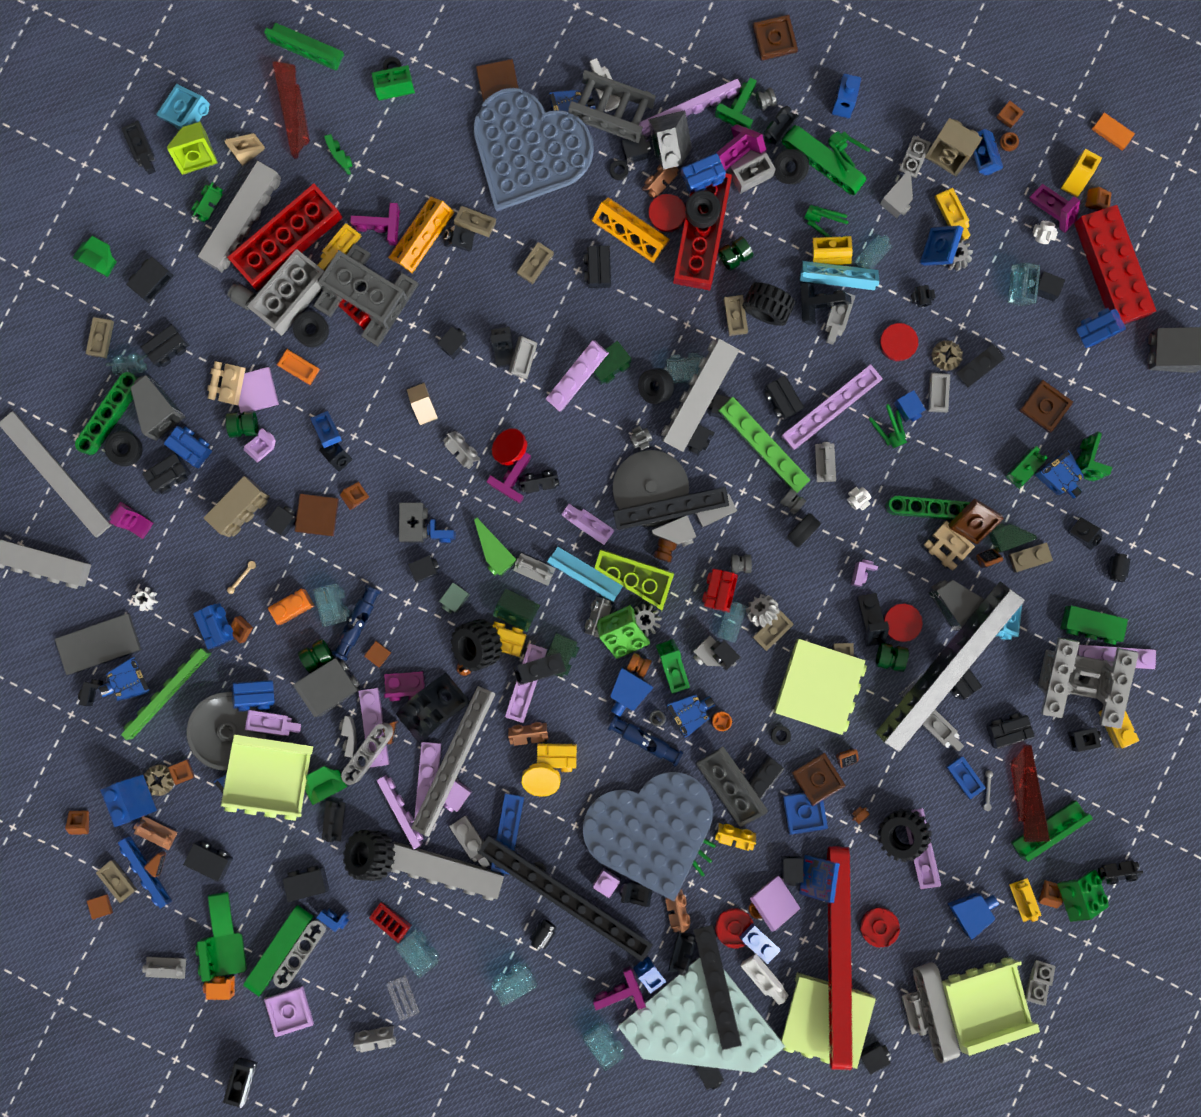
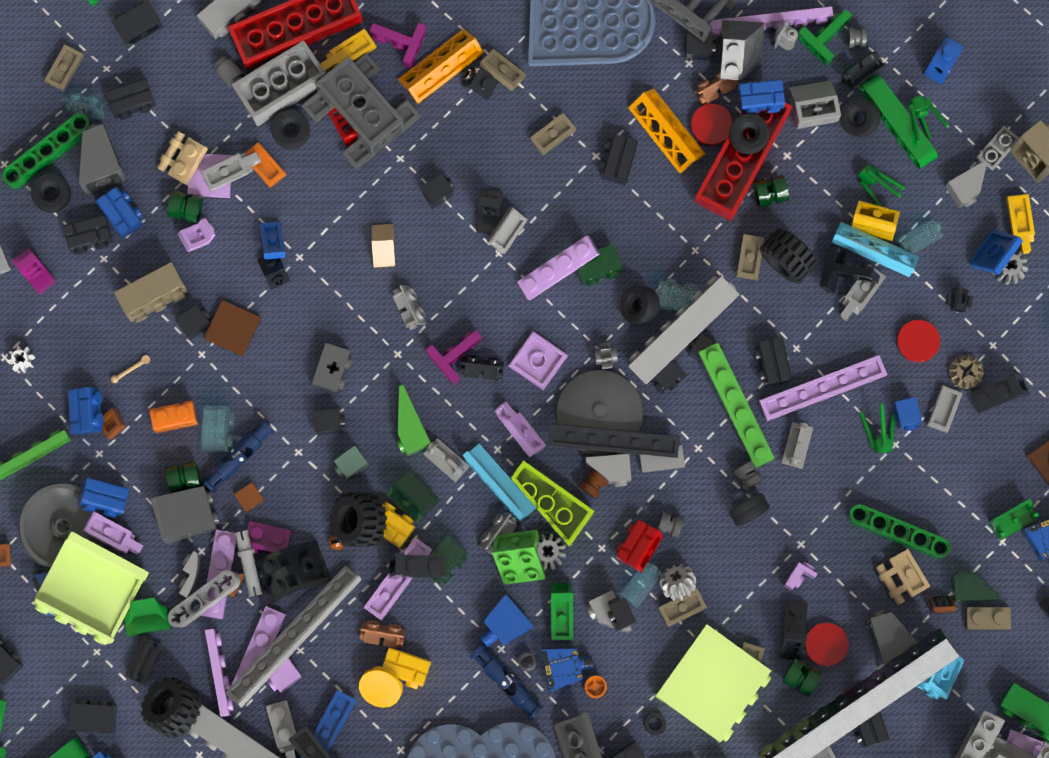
camera: 15 degrees right, 5 degrees down
(270, 380) = (229, 170): none -> light grey hinge
(354, 495) = (278, 320): dark orange slope -> none
(394, 711) = (248, 563): none -> light grey pin
(443, 536) = (360, 393): blue bracket -> none
(509, 446) = (462, 320): red tile -> none
(584, 460) = (538, 360): none -> lavender tile
(619, 163) = (668, 68): black piece -> none
(638, 664) = (525, 598): dark orange wheel -> none
(706, 116) = (785, 36): none -> light grey hinge
(743, 142) = (815, 76): magenta bracket -> none
(859, 498) = (820, 495): white gear -> none
(975, 521) = (938, 559): reddish brown tile -> none

